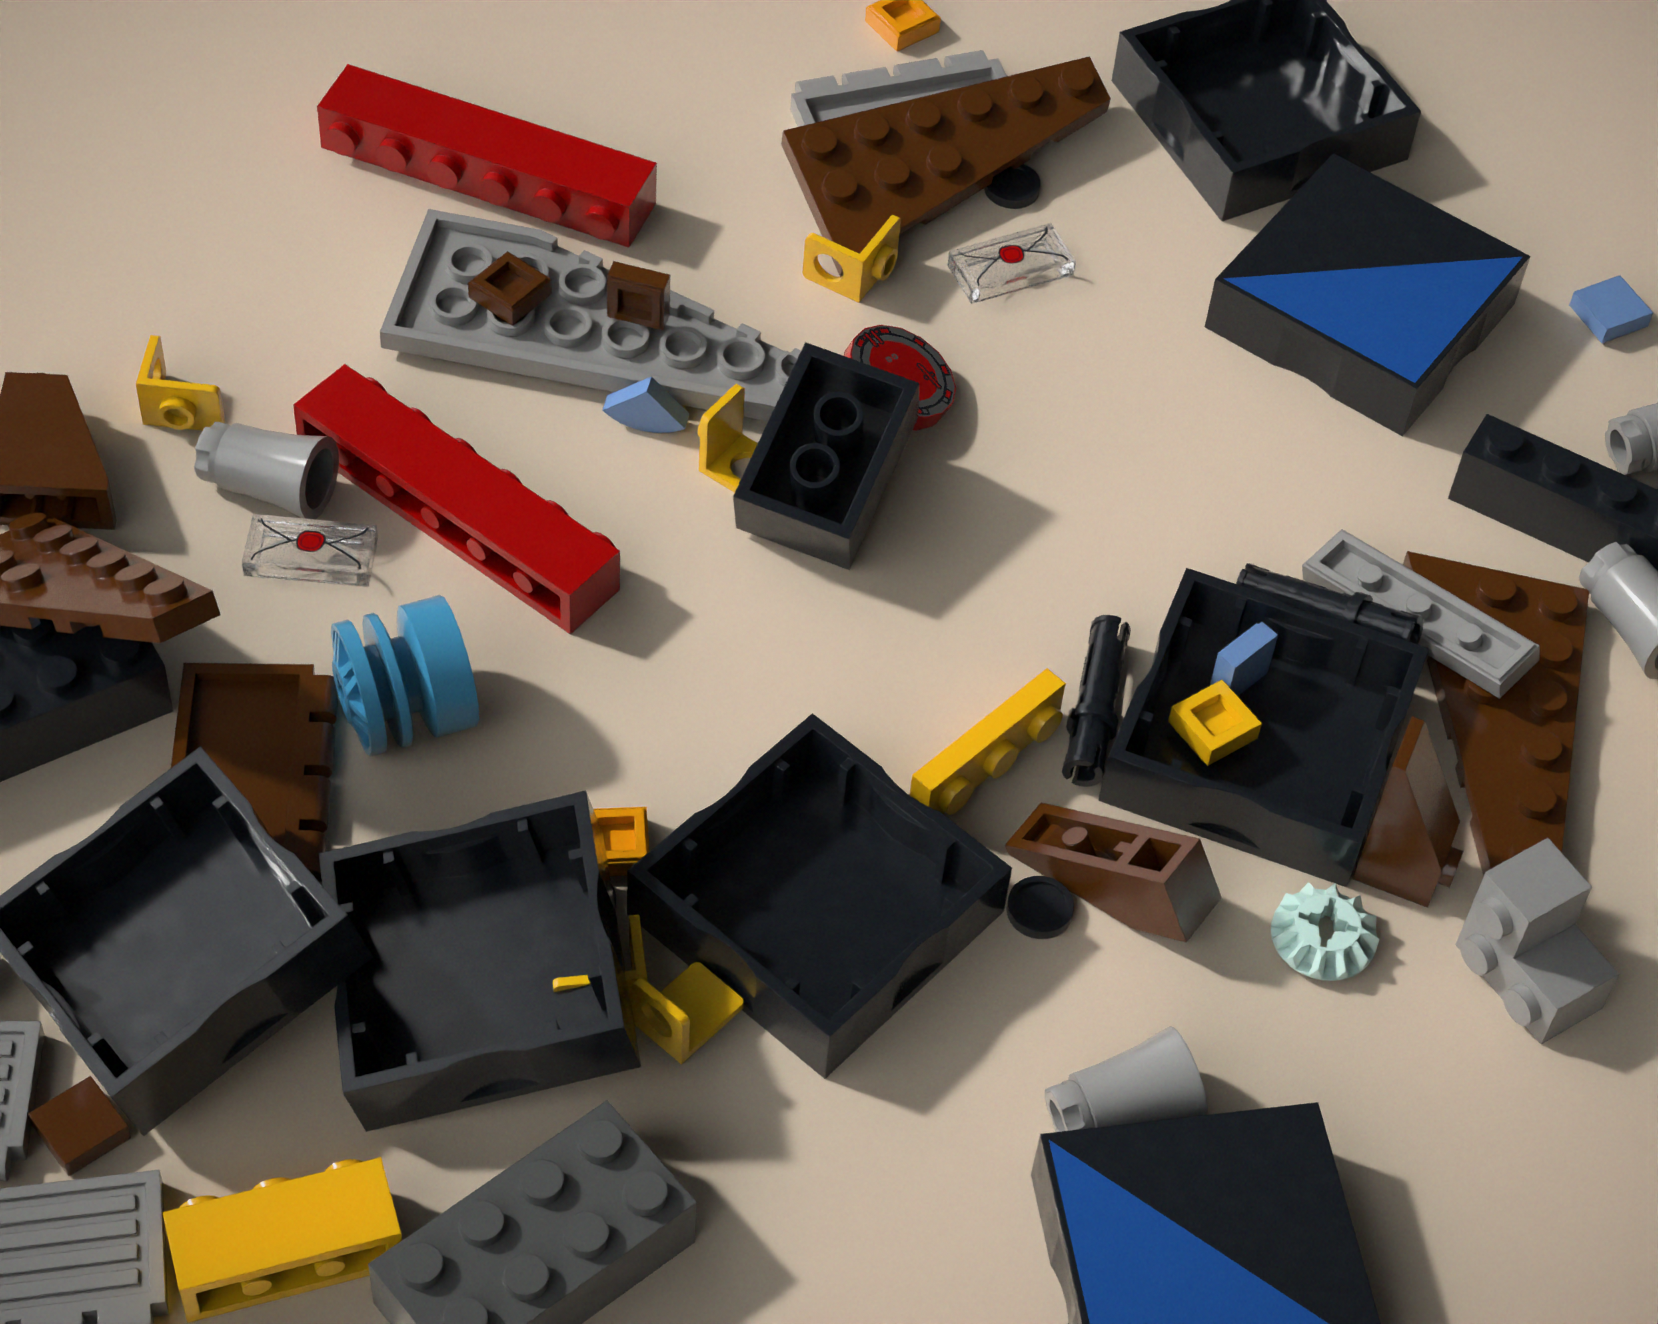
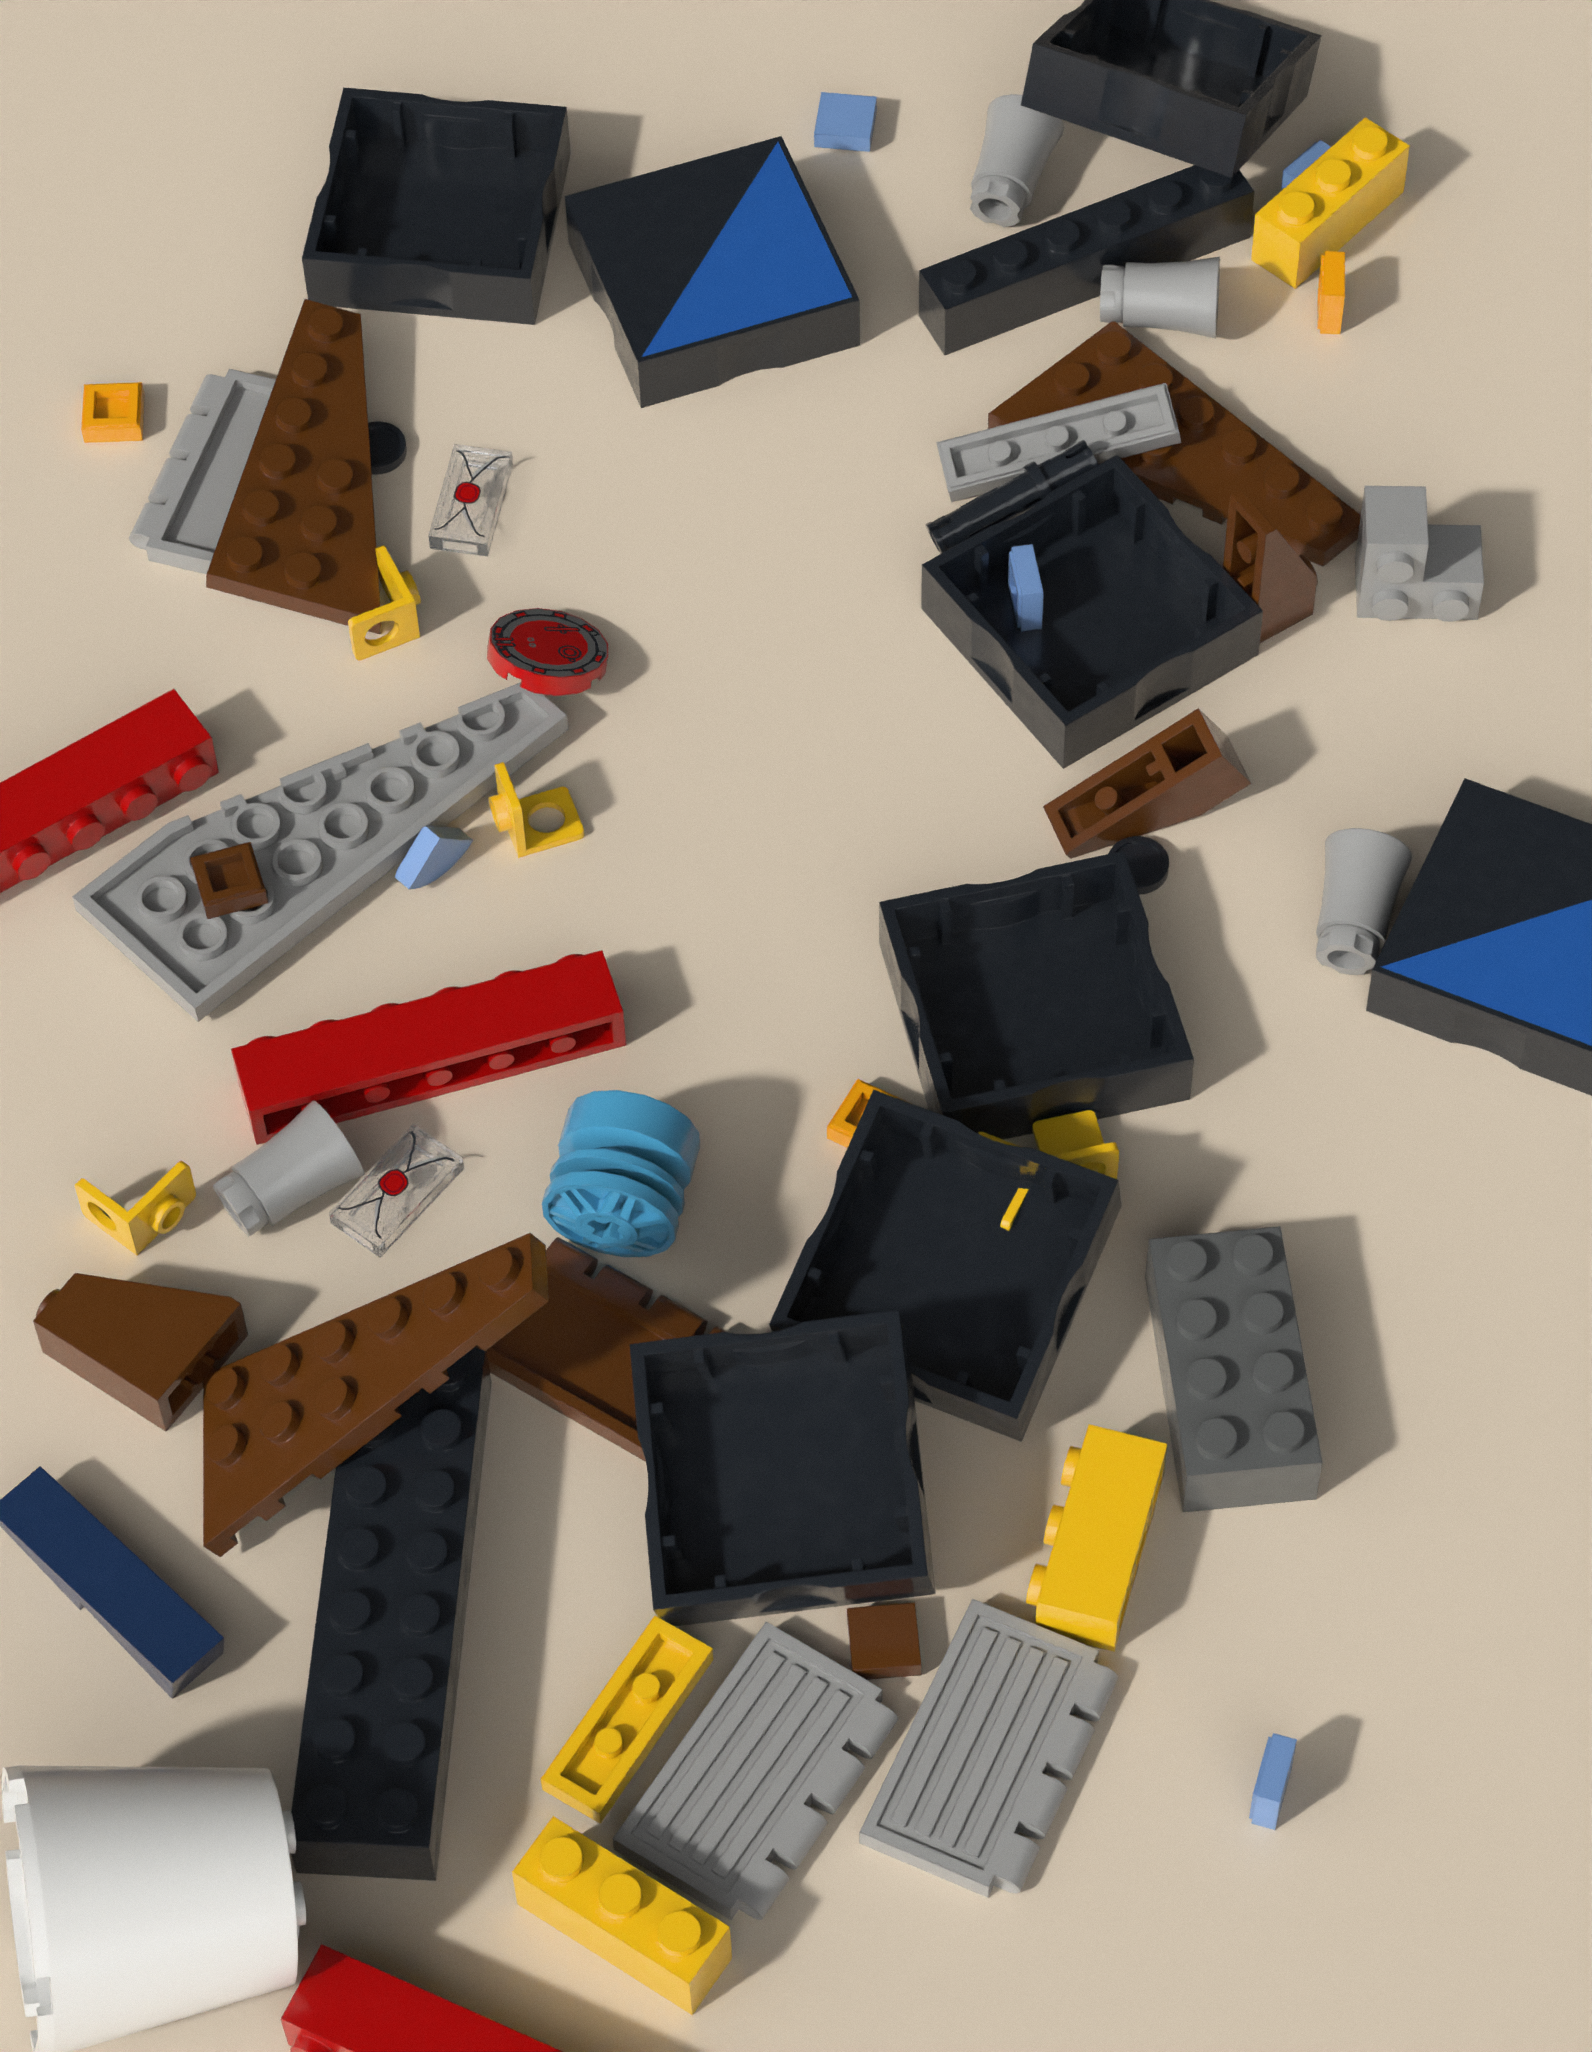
camera: 50 degrees left, 5 degrees up
(638, 295) = (328, 785): reddish brown tile -> none
(826, 455) = (615, 745): black brick -> none
(990, 745) = (976, 804): yellow plate -> none
(1094, 716) = (996, 722): black pin -> none
(1214, 722) = (1065, 641): yellow plate -> none
(1298, 938) = (1294, 711): light aqua gear -> none

